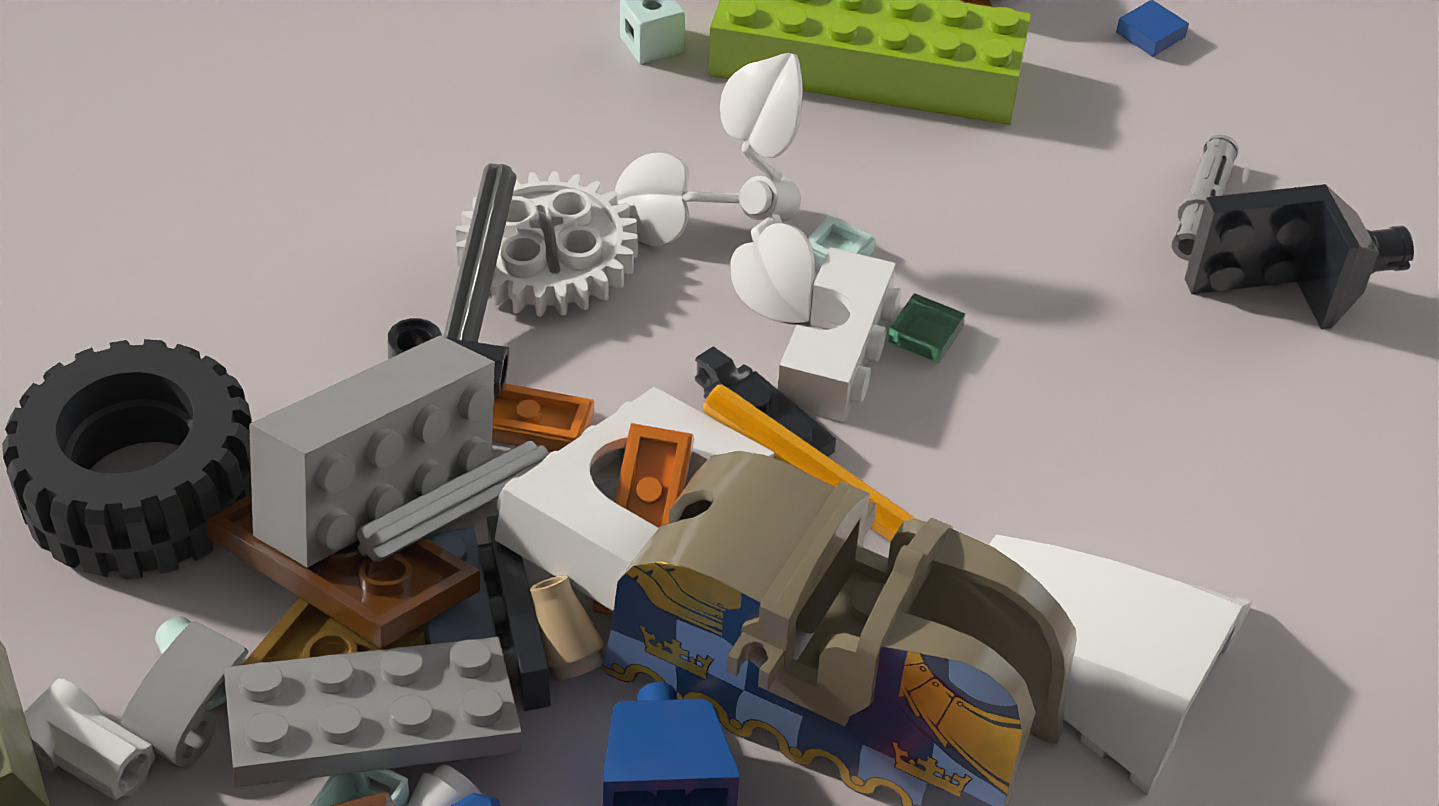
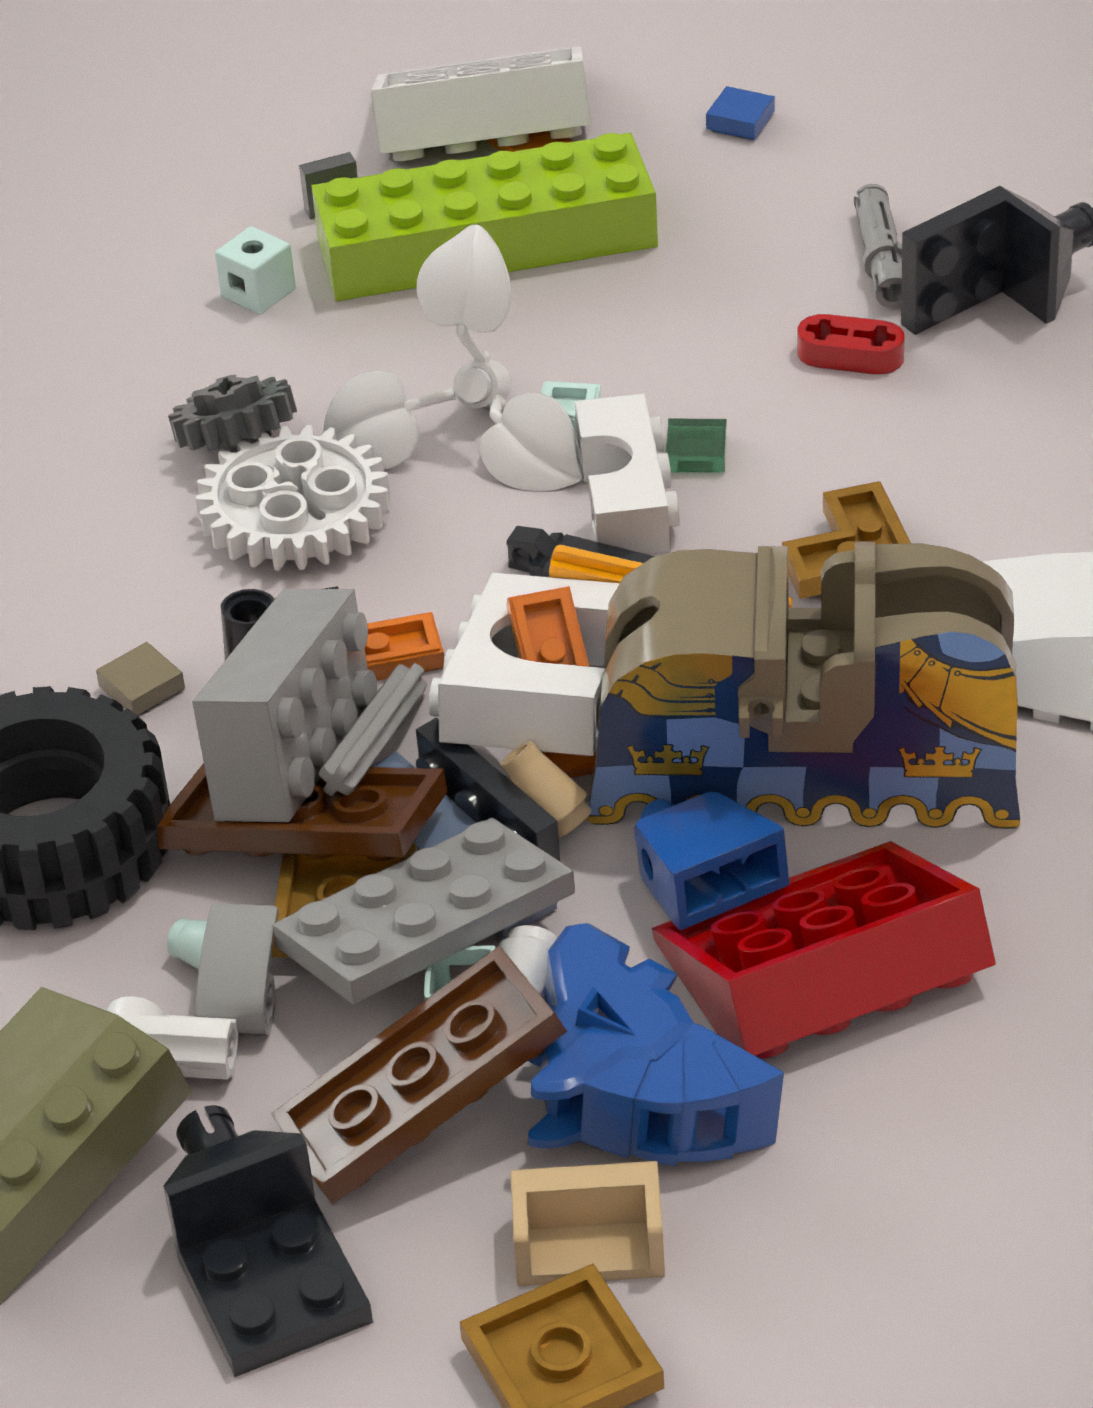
camera: 20 degrees left, 5 degrees down
(315, 361) = (140, 678): none -> dark tan tile
(481, 253) = (248, 511): dark grey axle -> none
(545, 145) = (232, 411): none -> dark grey gear
(1008, 499) = (853, 515): none -> pearl gold plate
(1123, 282) = (850, 344): none -> red beam

